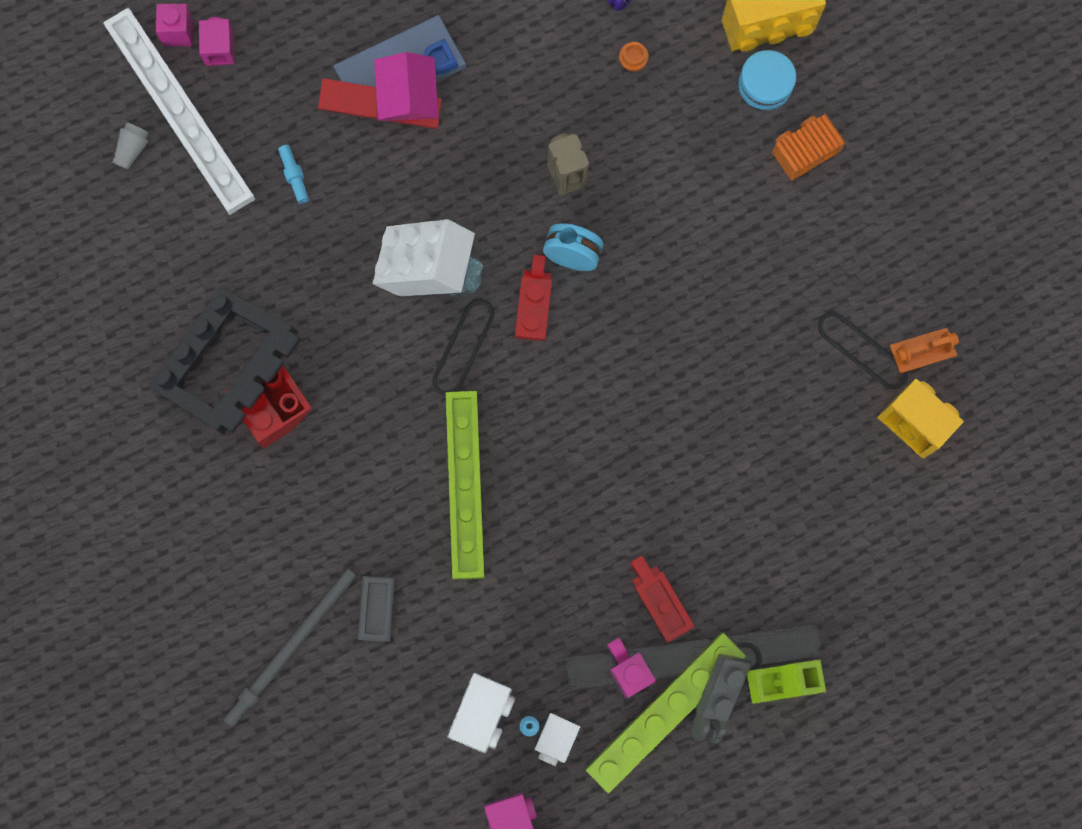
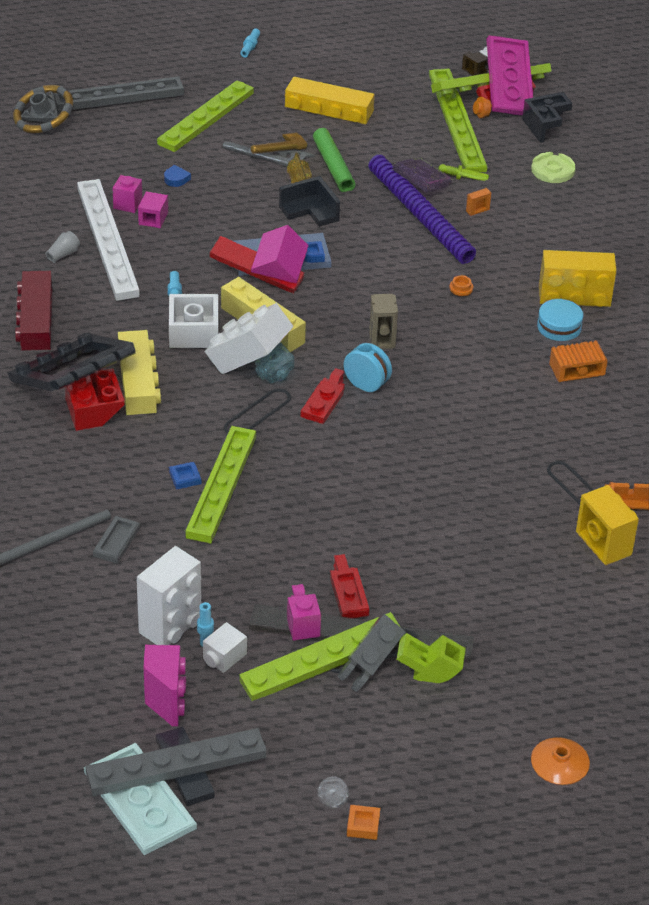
camera: 20 degrees right, 35 degrees down
(140, 270) = (35, 310): none -> dark red brick
(312, 355) = (138, 375): none -> light yellow brick
(340, 233) = (192, 320): none -> white brick
(415, 189) = (241, 297): none -> light yellow brick
(417, 481) = (185, 475): none -> blue tile
(938, 764) = (556, 768): none -> orange dish

